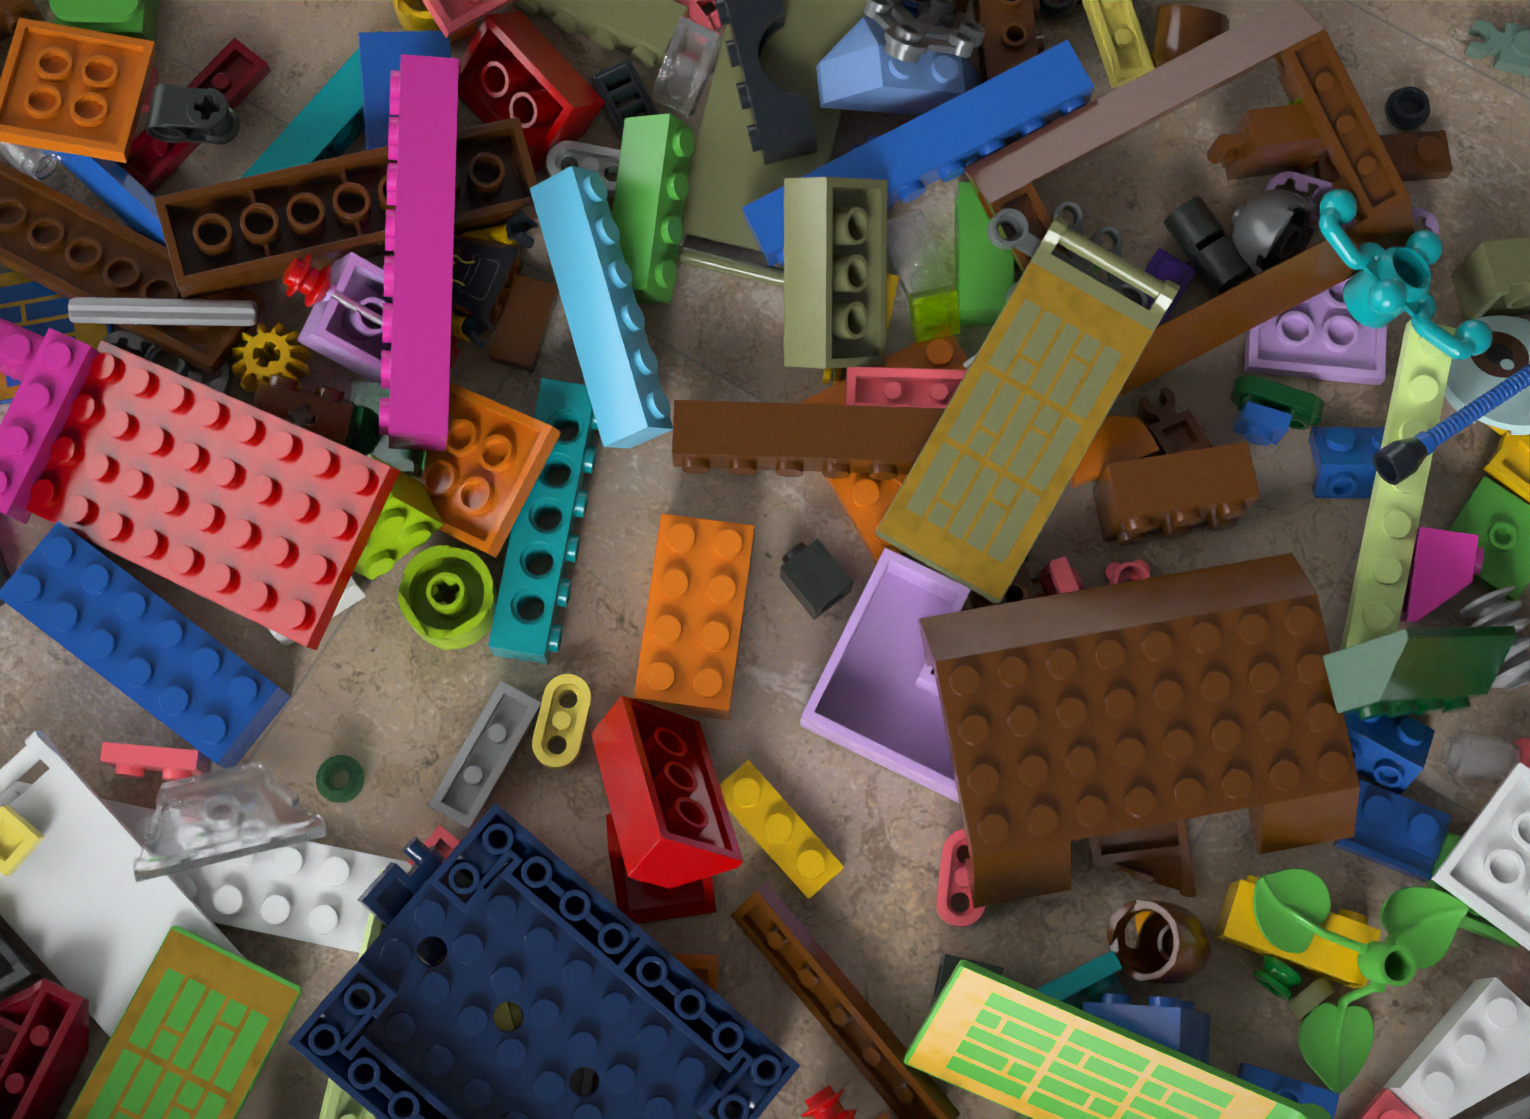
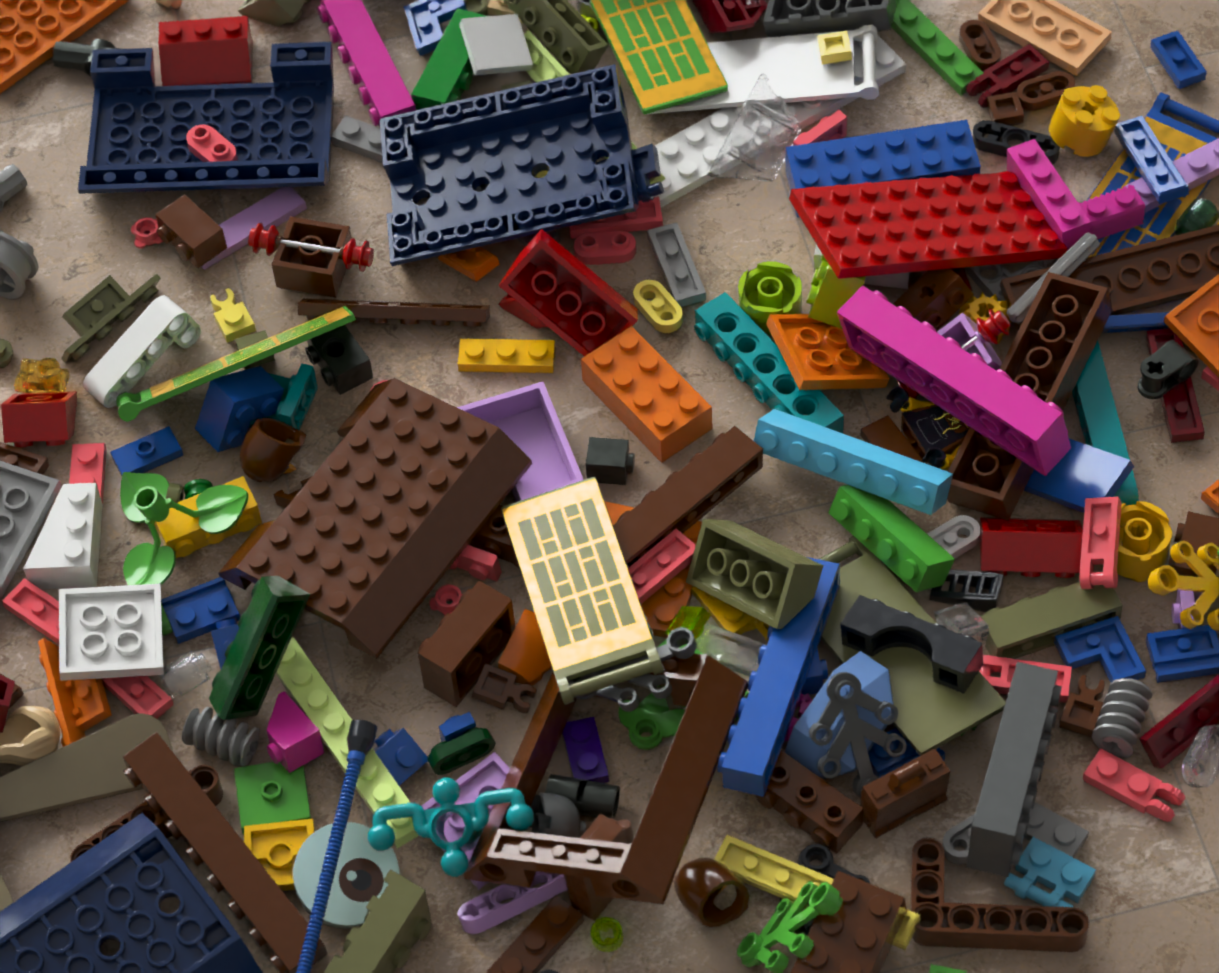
camera: 140 degrees right, 20 degrees down
(327, 772) = (731, 203): clear green plate -> none

